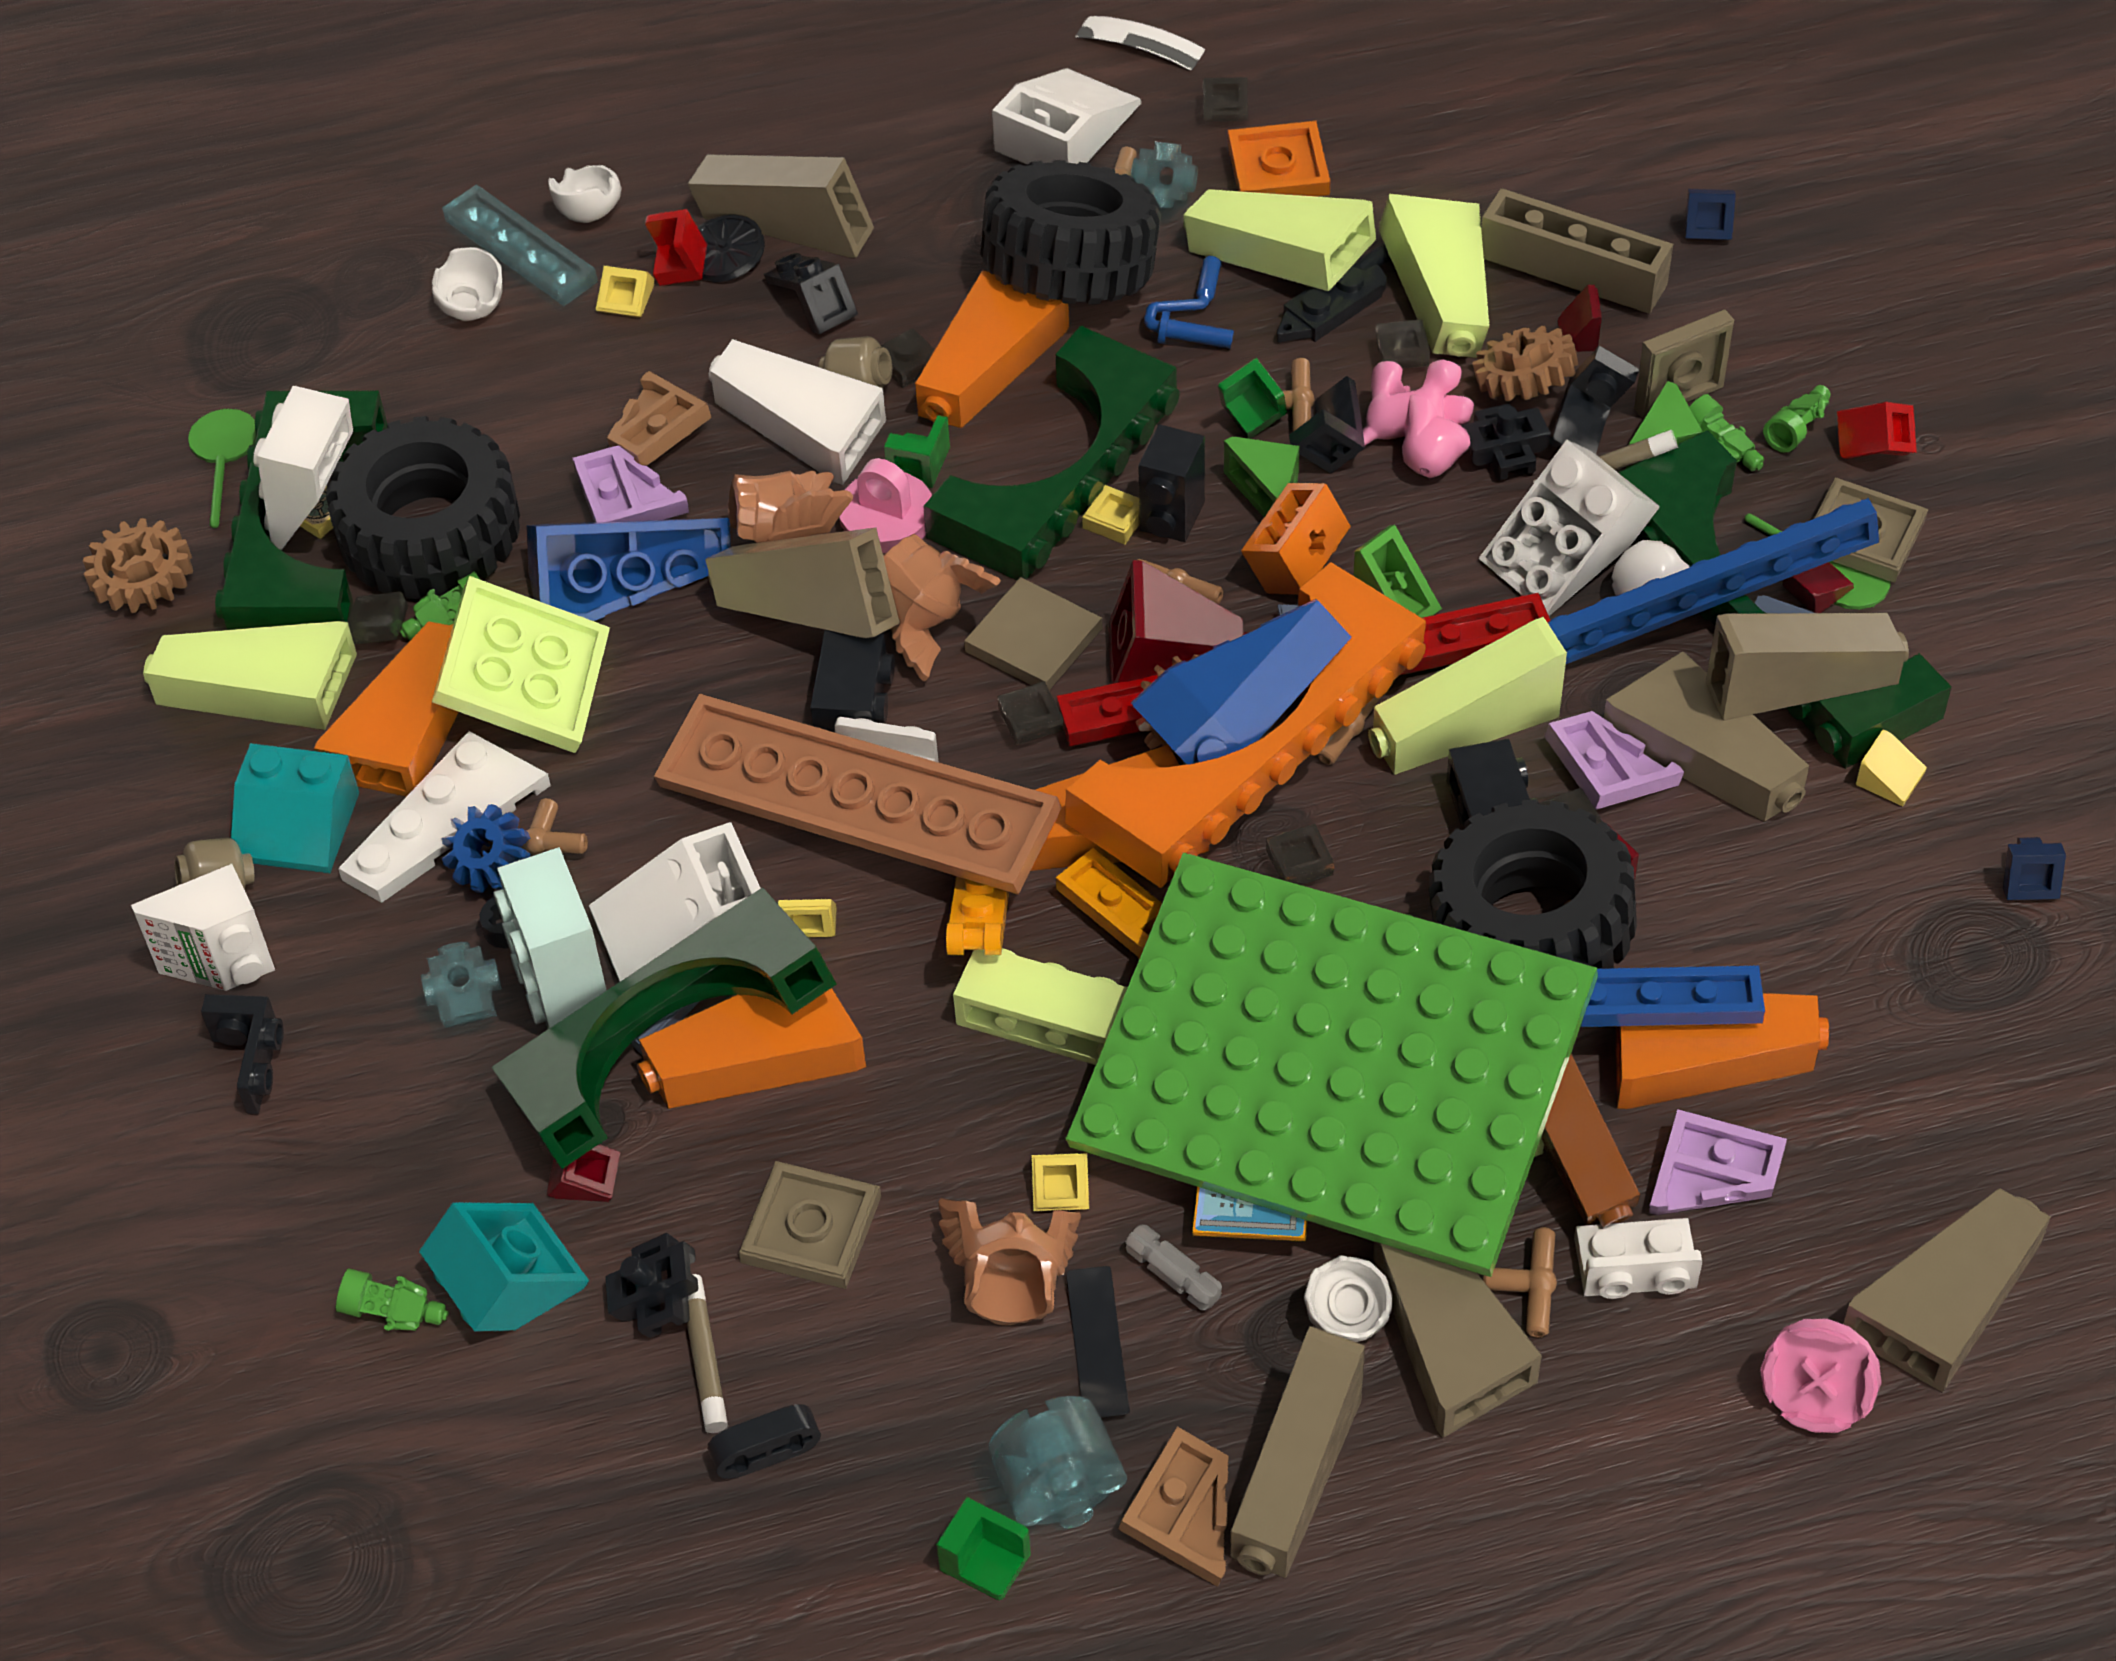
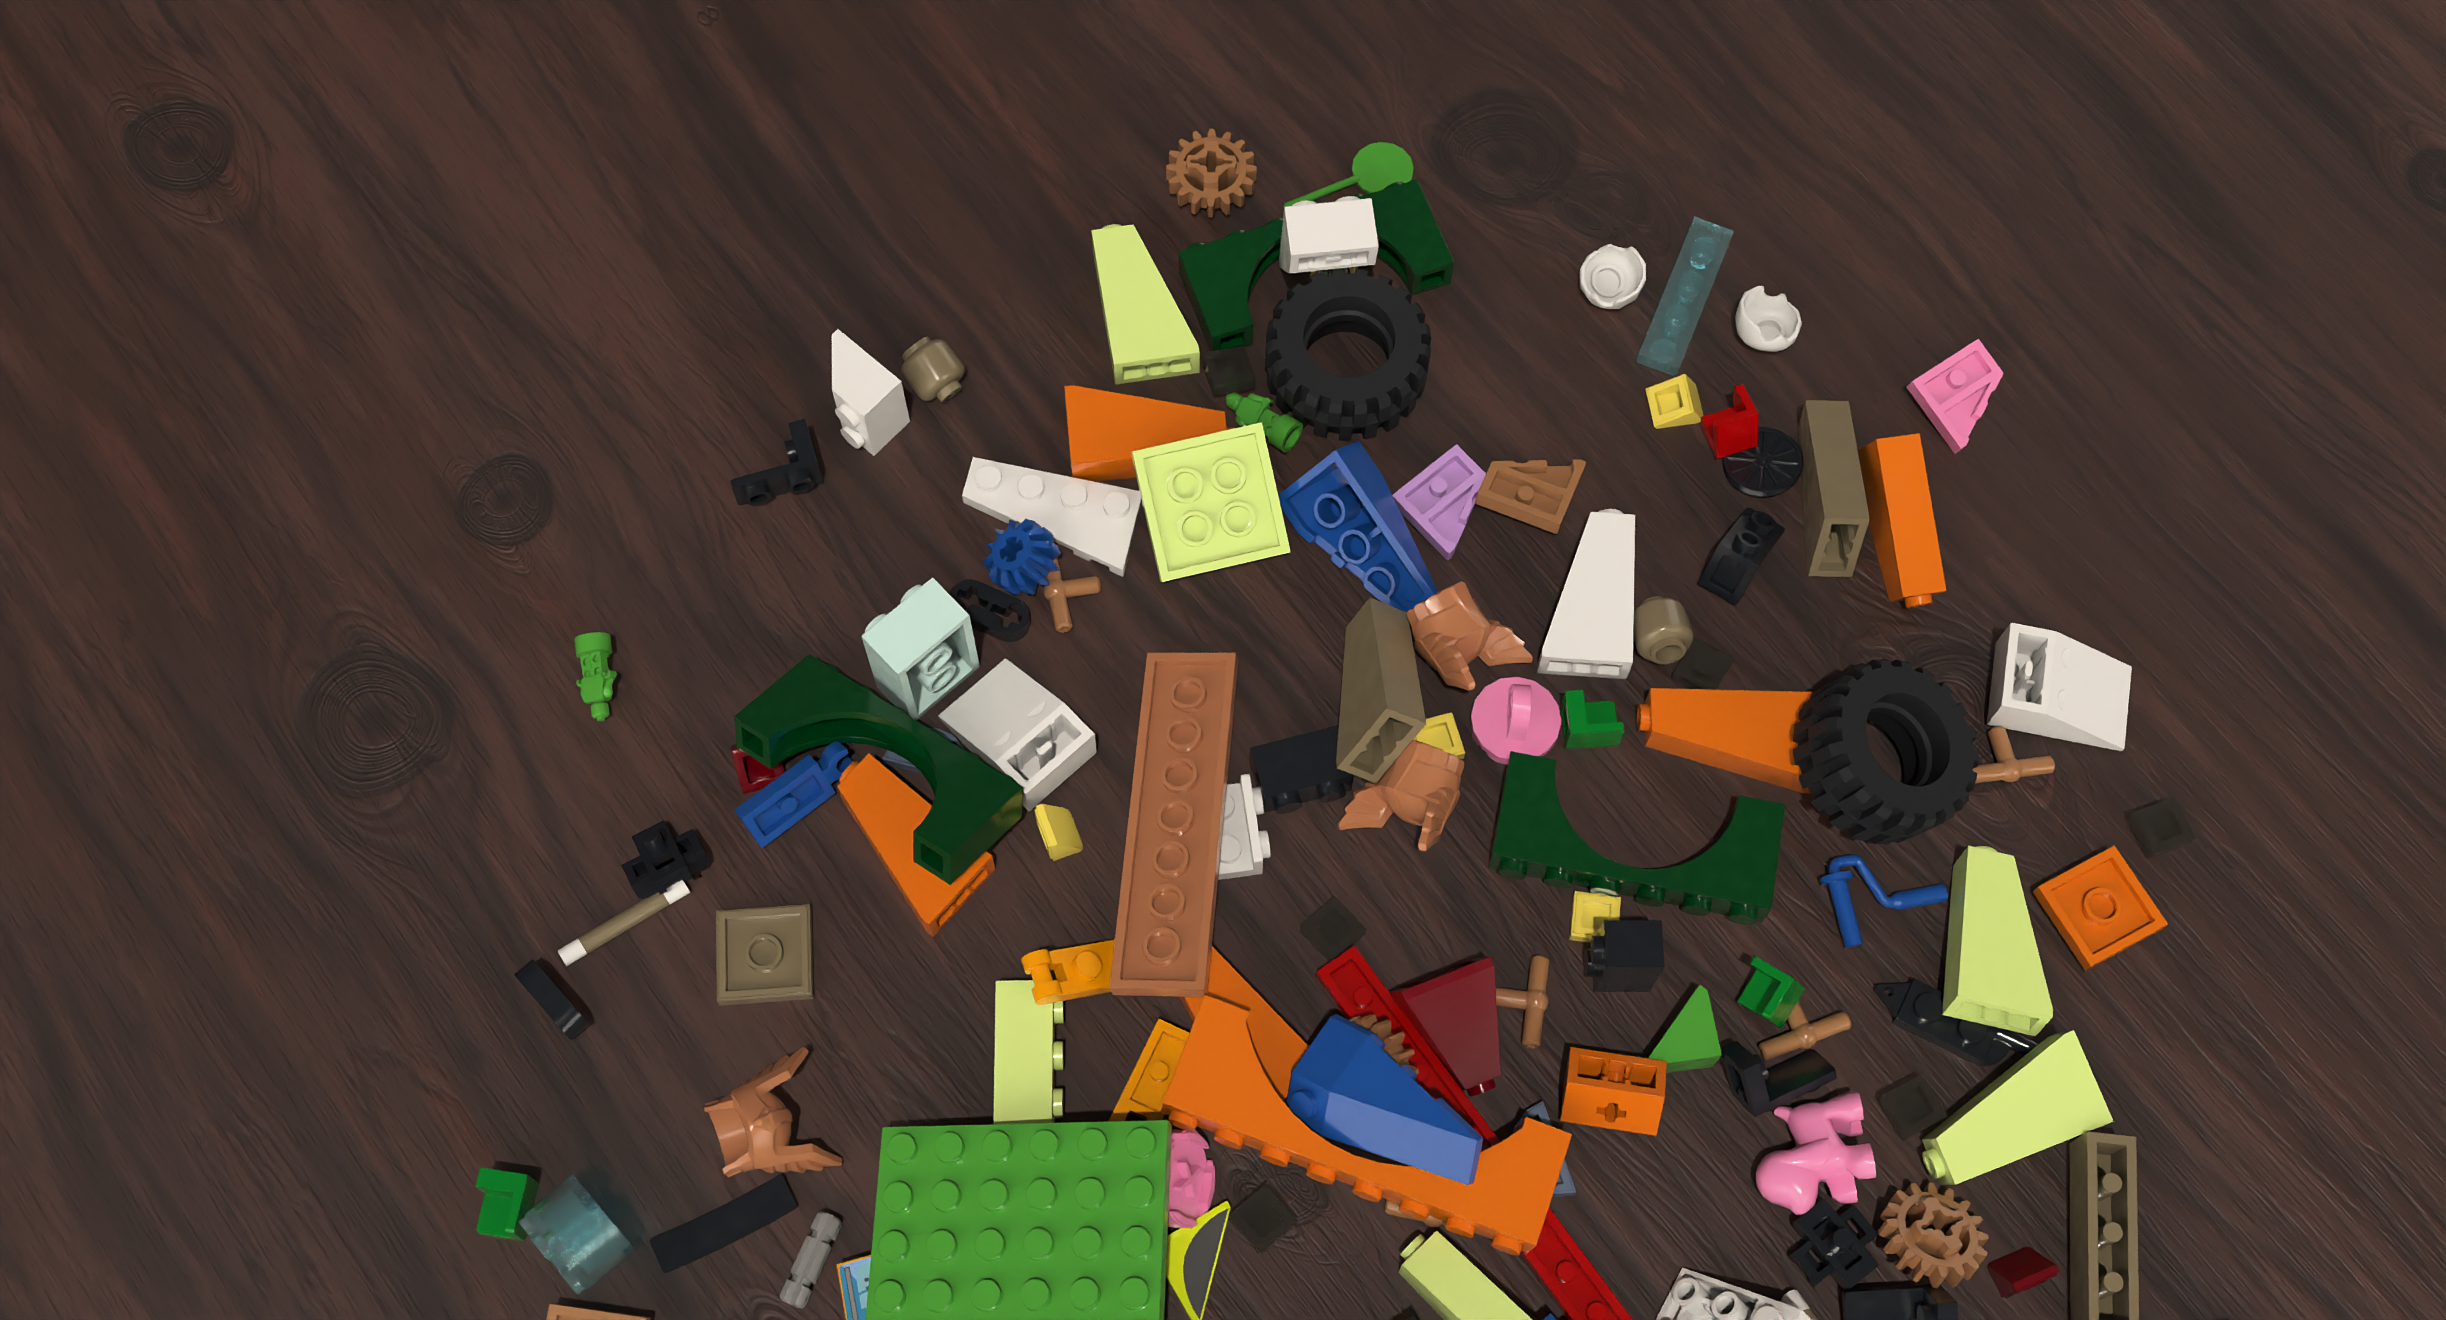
camera: 65 degrees right, 15 degrees up
(293, 806) = (1014, 397): teal slope -> none
(463, 1003) = (878, 591): clear light blue brick -> none
(501, 1264) = (649, 741): teal slope -> none
(643, 1137) = (793, 794): none -> blue plate
(737, 91) = (1957, 392): none -> bright pink wing
(884, 168) = (1902, 519): none -> orange slope
(1033, 634) = (1426, 899): dark tan tile -> none
(1060, 1182) = (862, 1134): light yellow slope -> none
(1143, 37) = (2213, 721): white sticker -> none
(1165, 155) = (2020, 808): clear light blue brick -> none
(1391, 569) = (1603, 1201): bright green slope -> none

